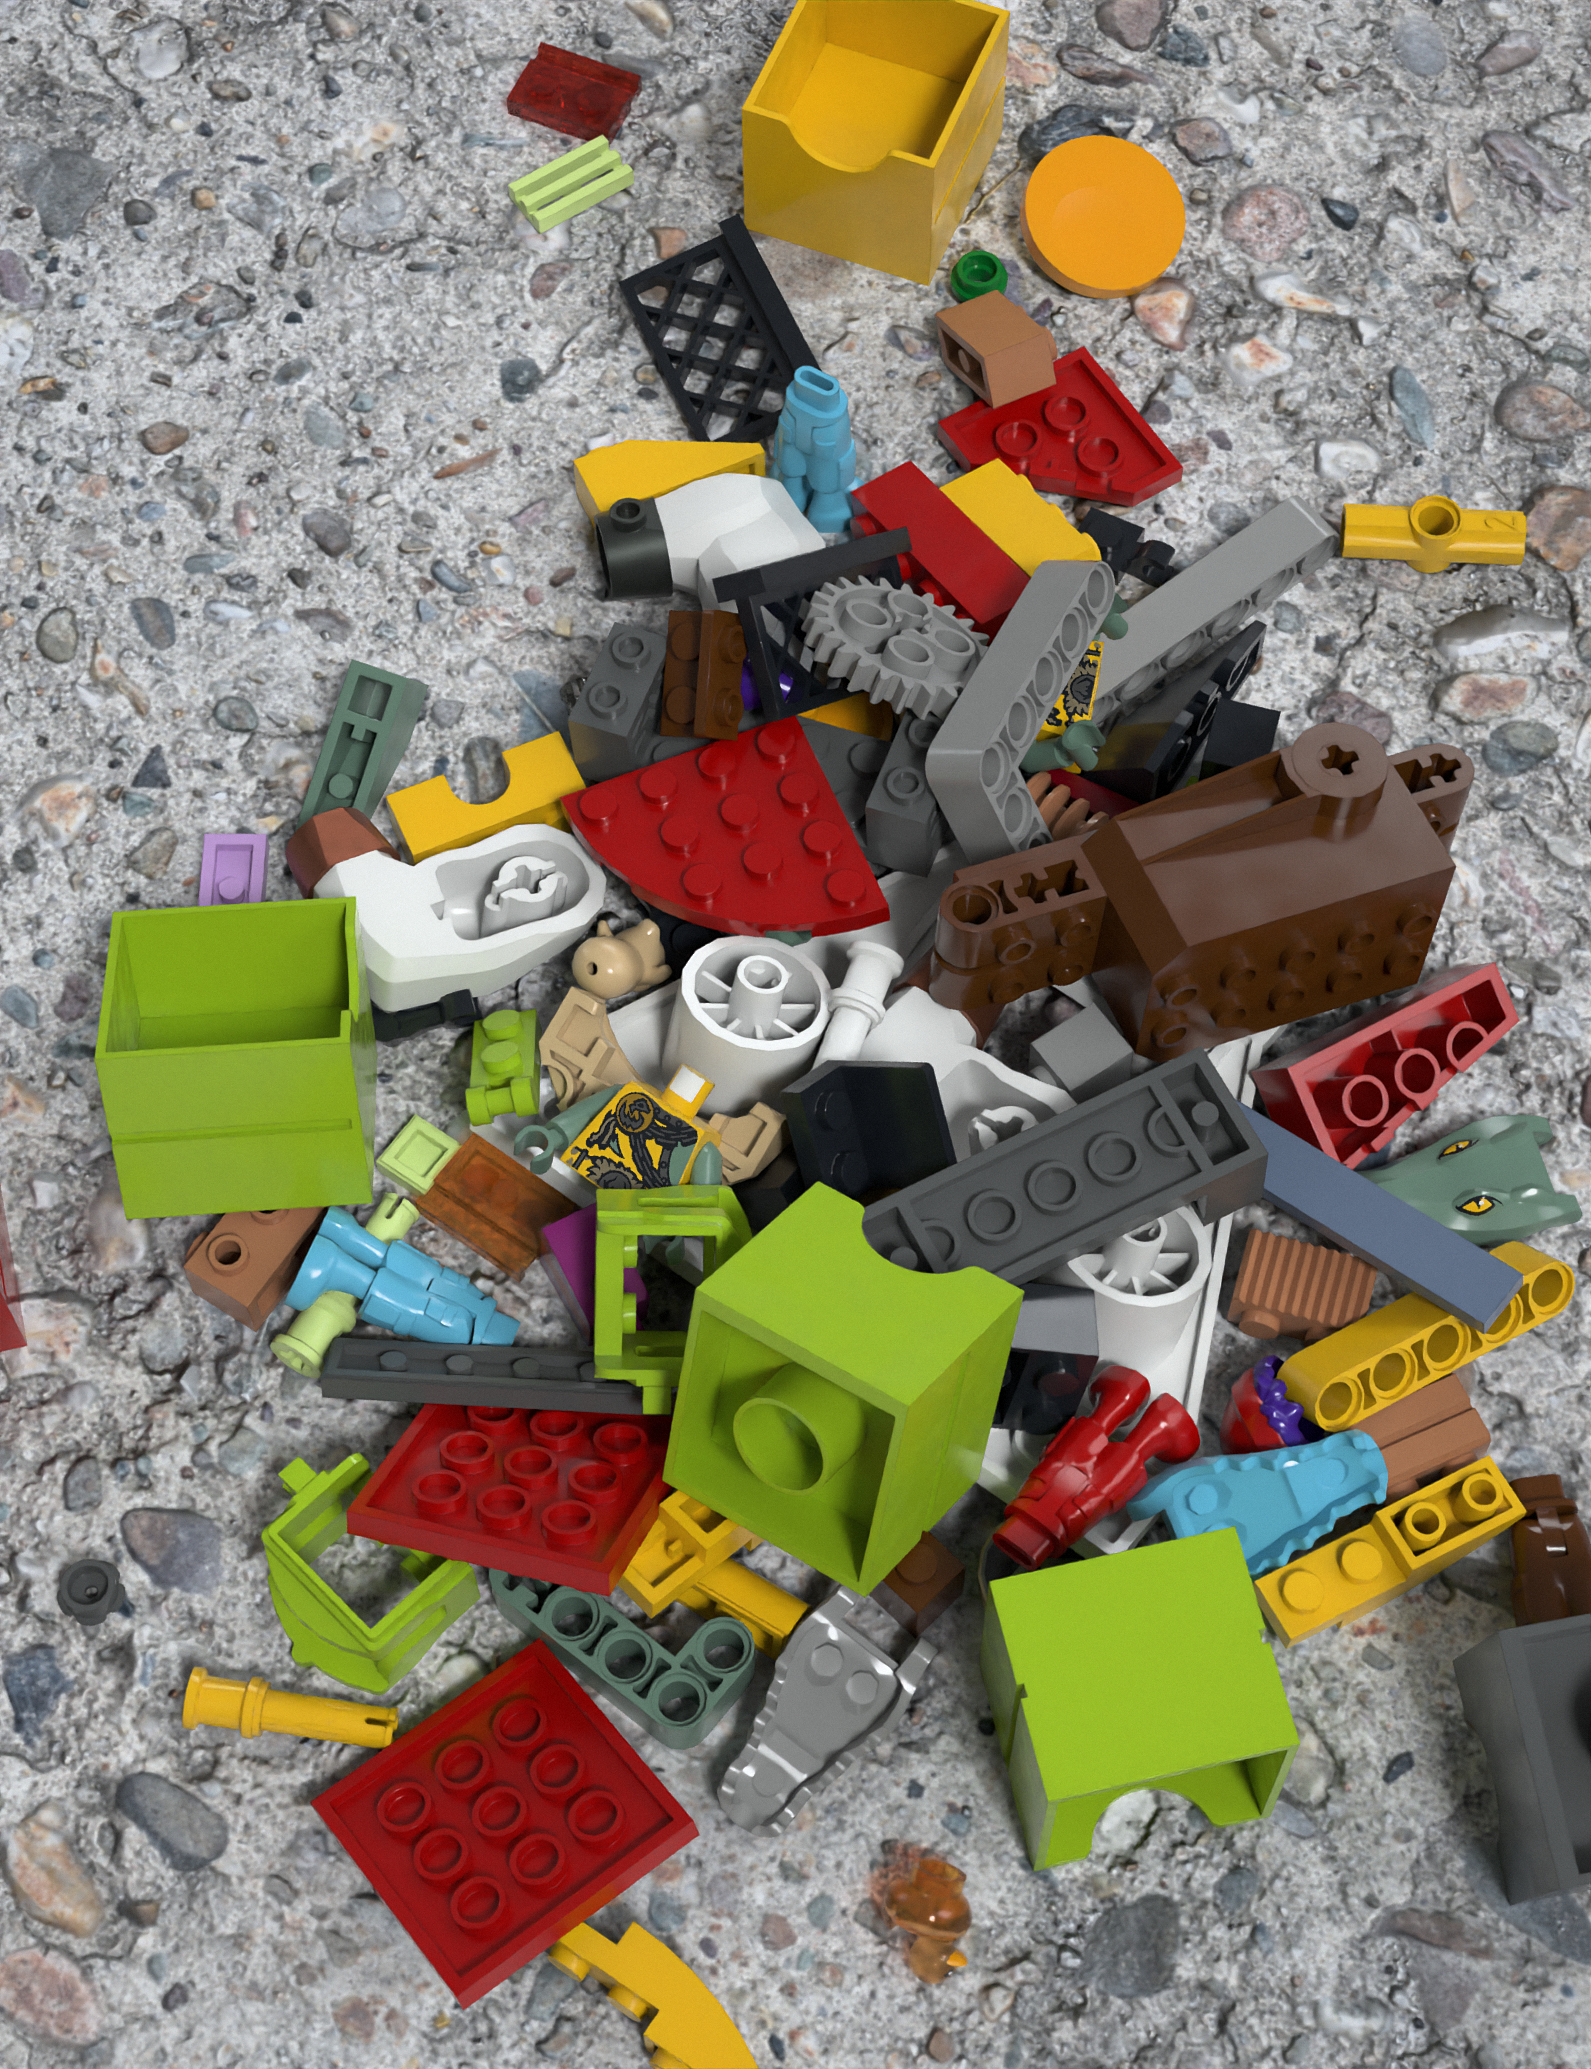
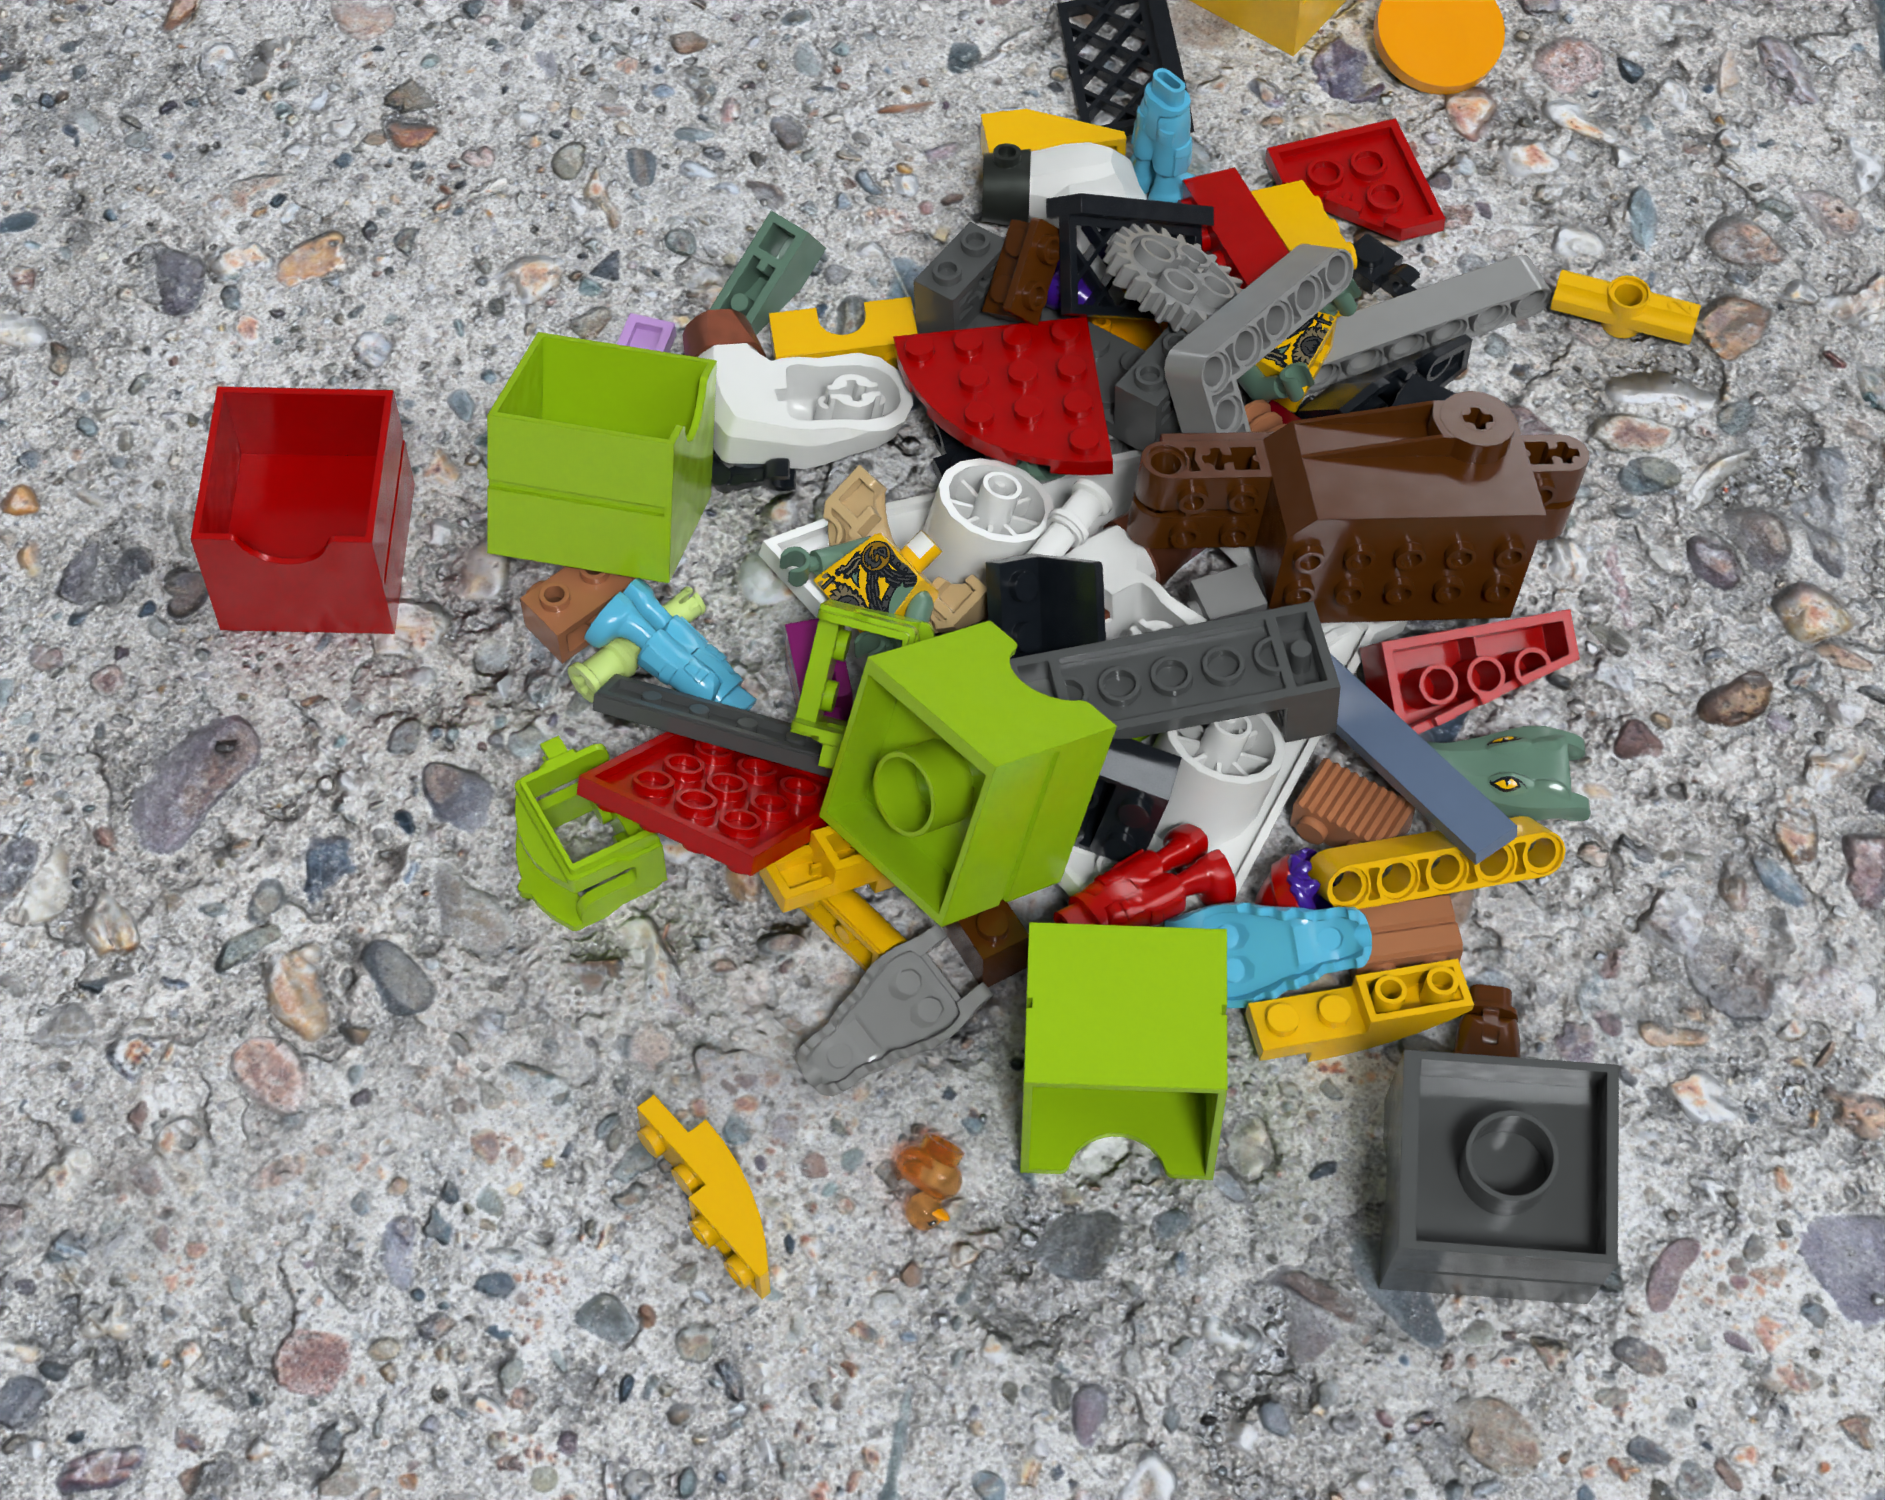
camera: 15 degrees right, 5 degrees down
(79, 1579) = (381, 796): dark grey plate -> none
(258, 1708) = (481, 913): yellow pin -> none
(417, 1156) = (720, 573): yellowish green tile -> none
(493, 1206) = (755, 613): clear orange plate -> none
(503, 1822) = (633, 1028): red plate -> none
(505, 1066) = (795, 517): lime plate -> none
(615, 1636) = (754, 928): sand green beam -> none
(621, 962) = (907, 468): tan animal -> none
(981, 267) = (1331, 56): green plate -> none
(996, 348) = (1326, 104): nougat brick -> none

